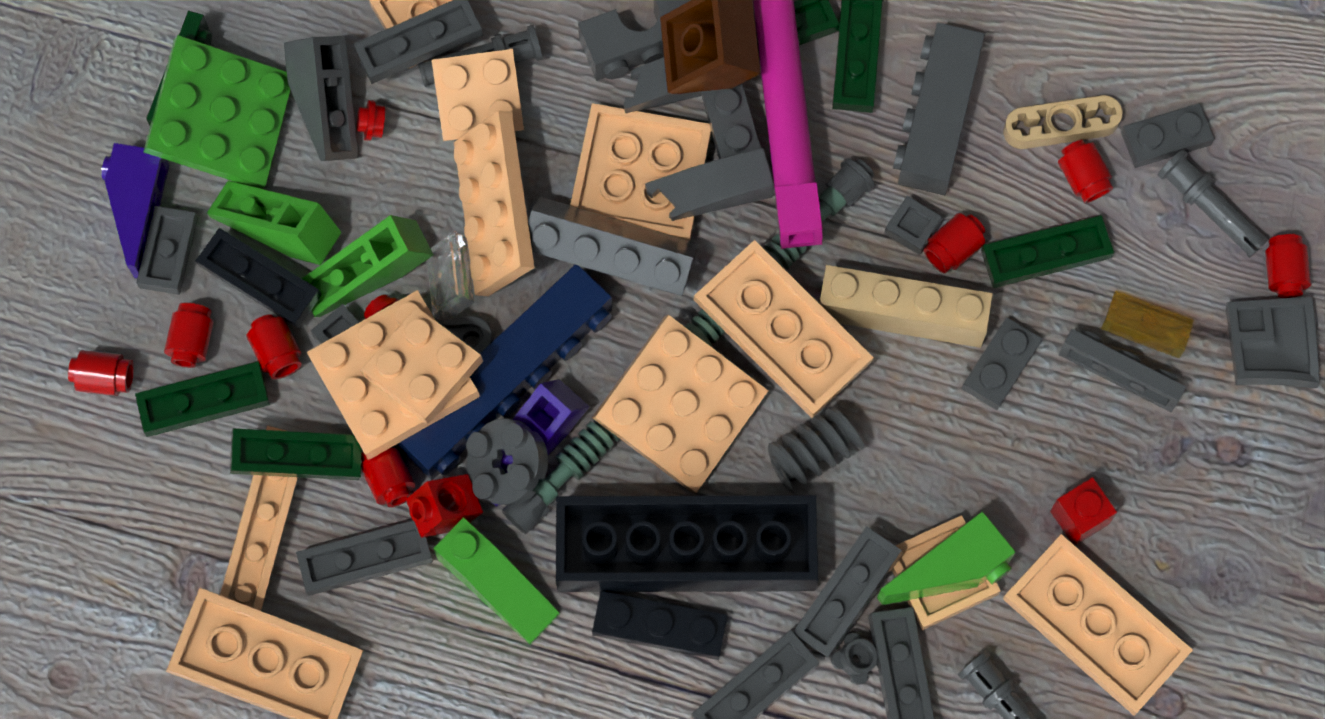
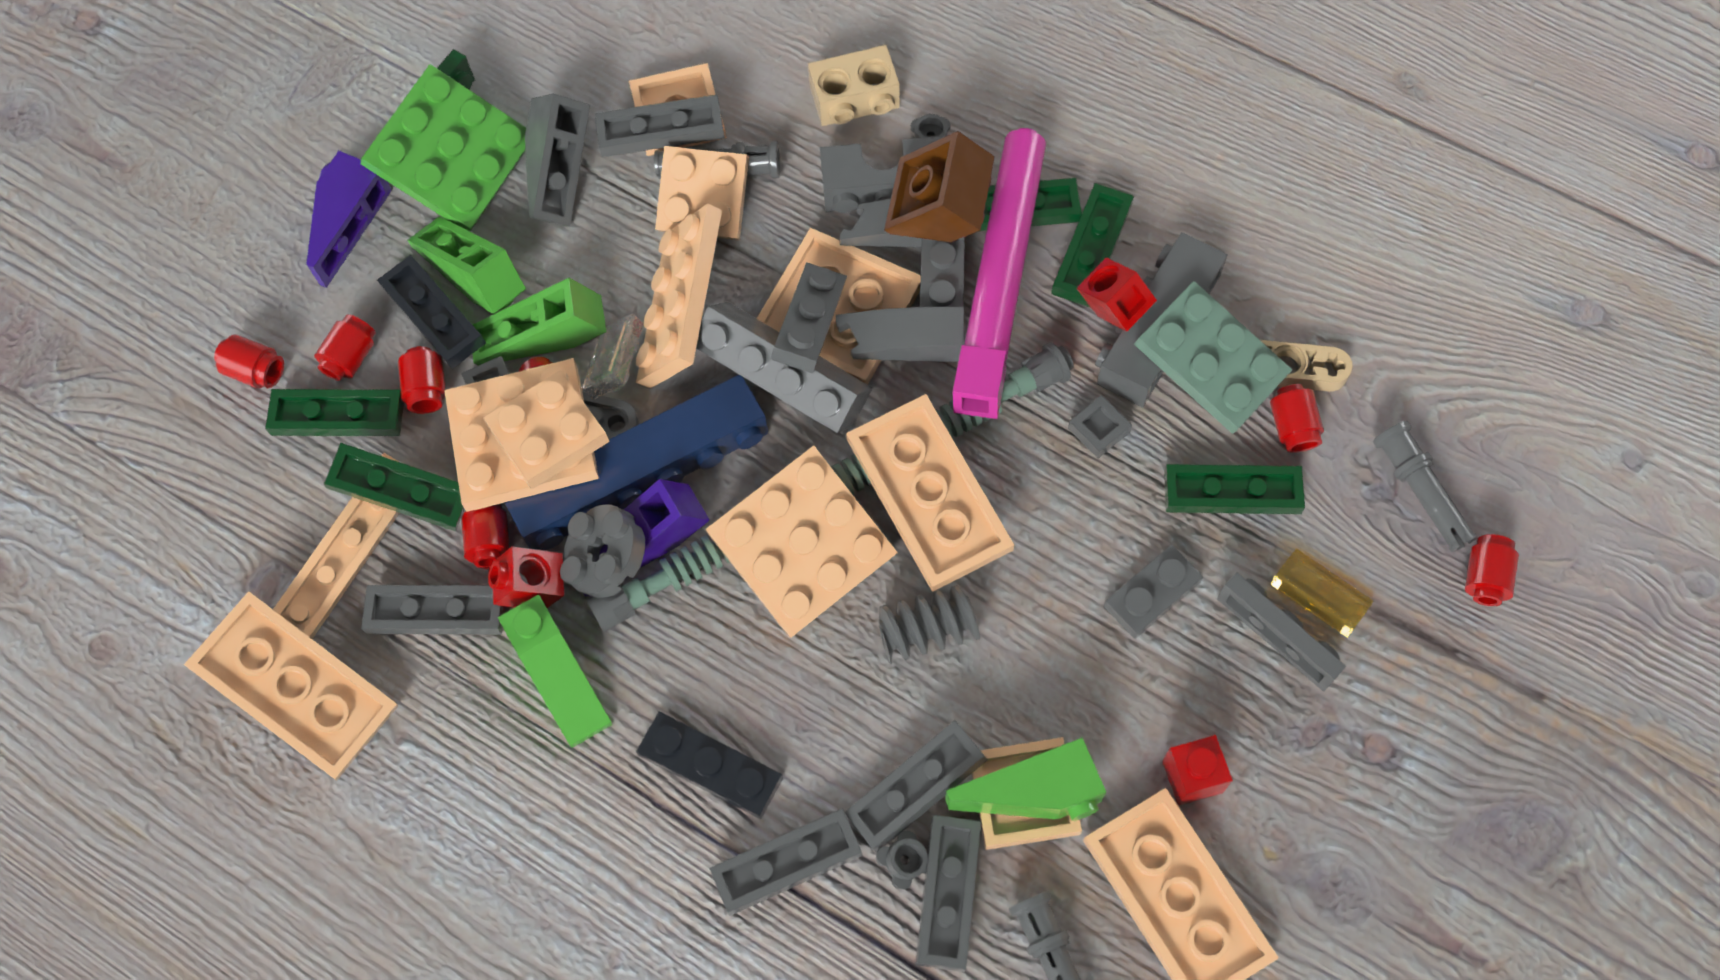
camera: 20 degrees right, 5 degrees down
(167, 250) = (356, 264): dark grey plate -> none
(371, 120) = (592, 192): red plate -> none
(625, 194) = (808, 318): none -> dark grey plate
(686, 543) = (760, 686): black brick -> none
(896, 99) = (1116, 294): none -> red brick
(906, 306) = (1066, 504): tan brick -> none
(955, 242) = (1138, 454): red brick -> none
(998, 135) = (1213, 357): none -> sand green plate
(1167, 135) = (1389, 403): dark grey plate -> none
(1274, 342) = (1457, 647): dark grey plate -> none

